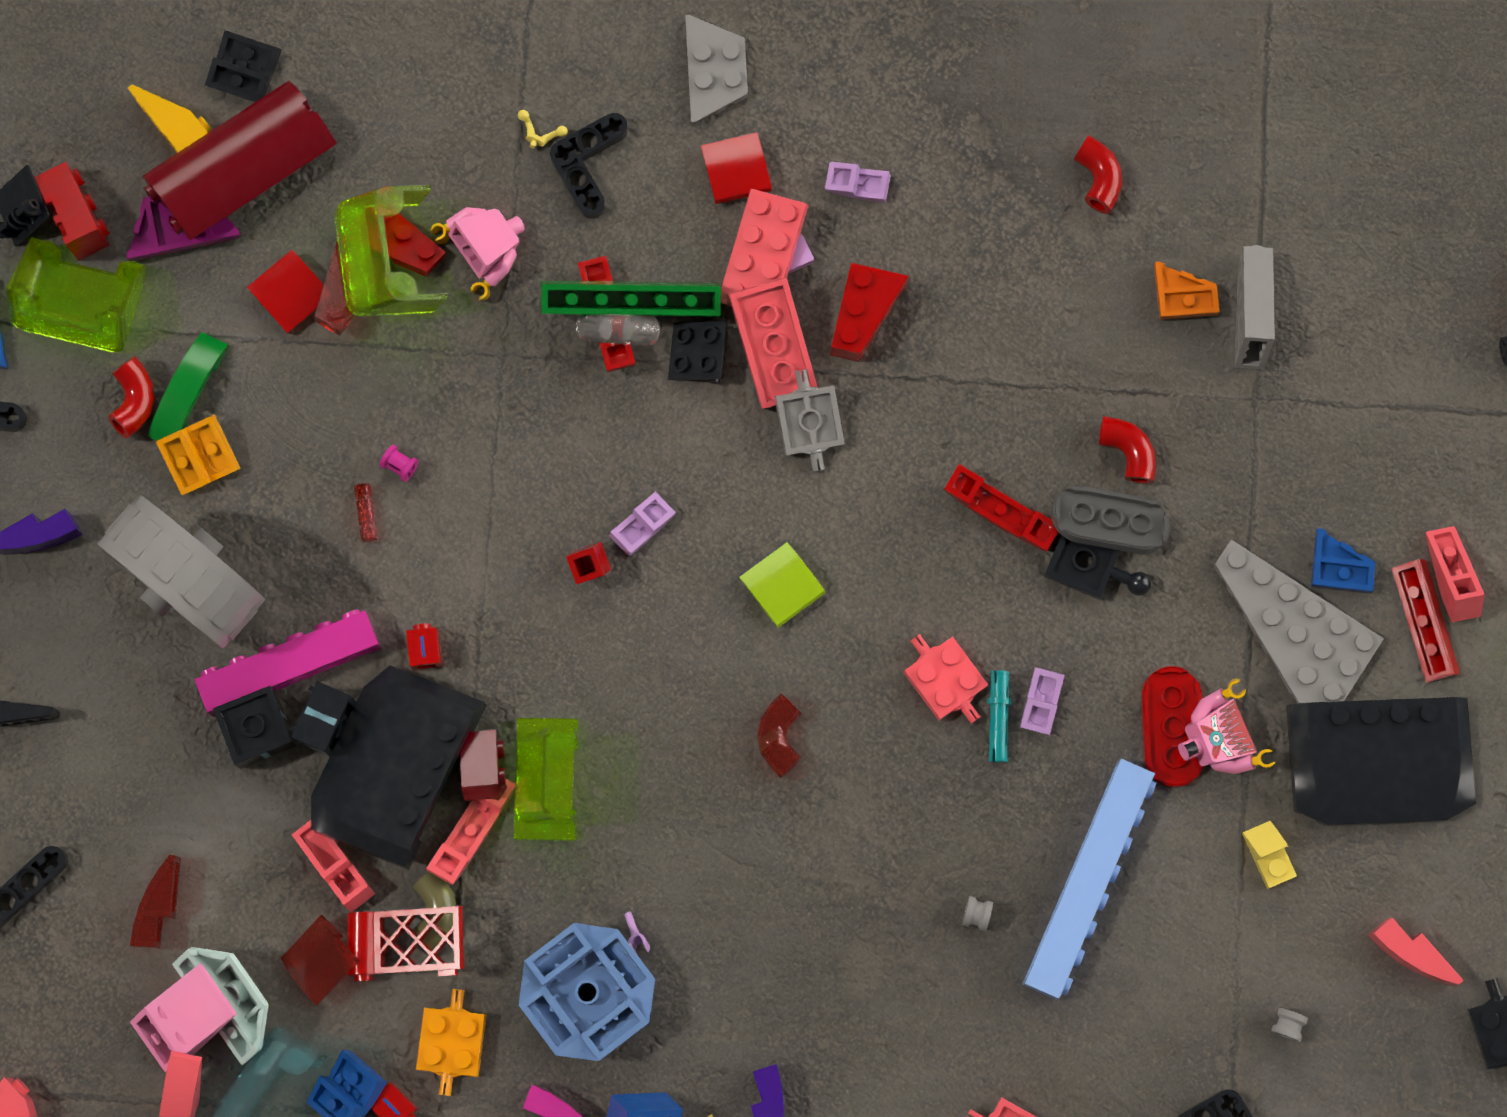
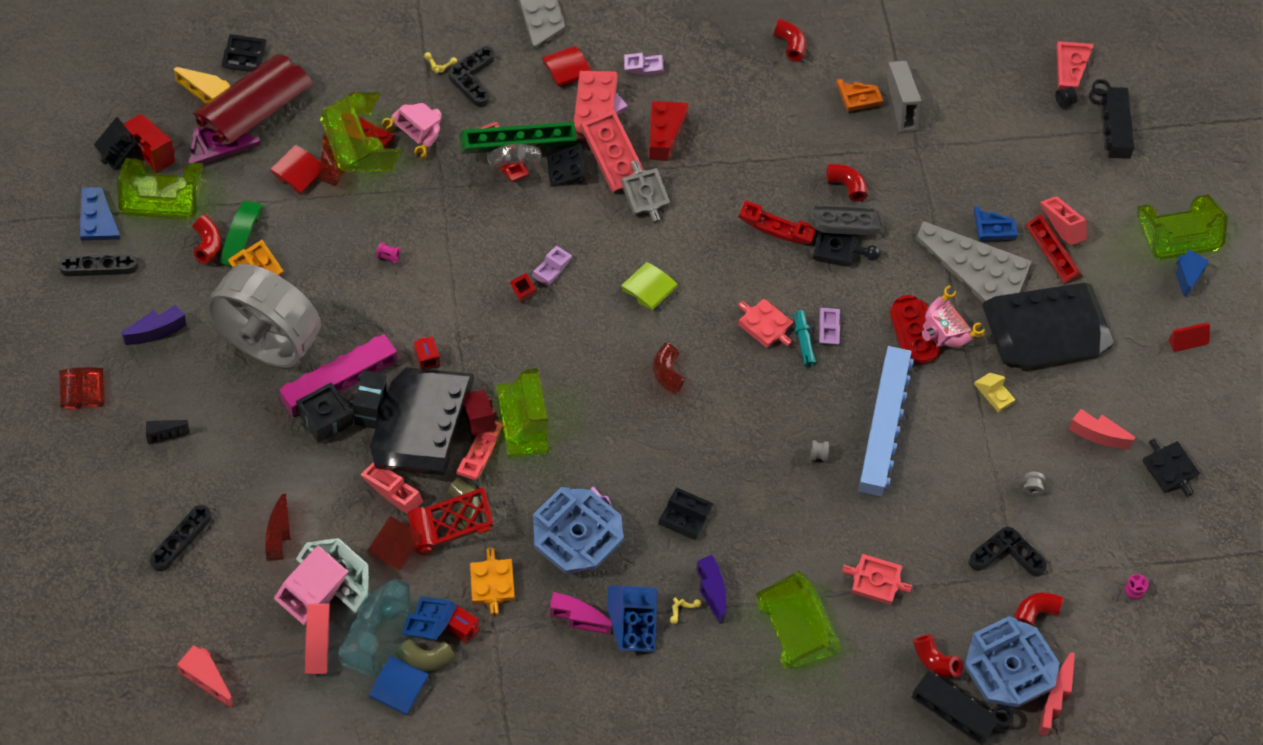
camera: 15 degrees left, 20 degrees down
(365, 512) = (372, 284): clear red axle -> none
(756, 980) = (685, 513): none -> black slope

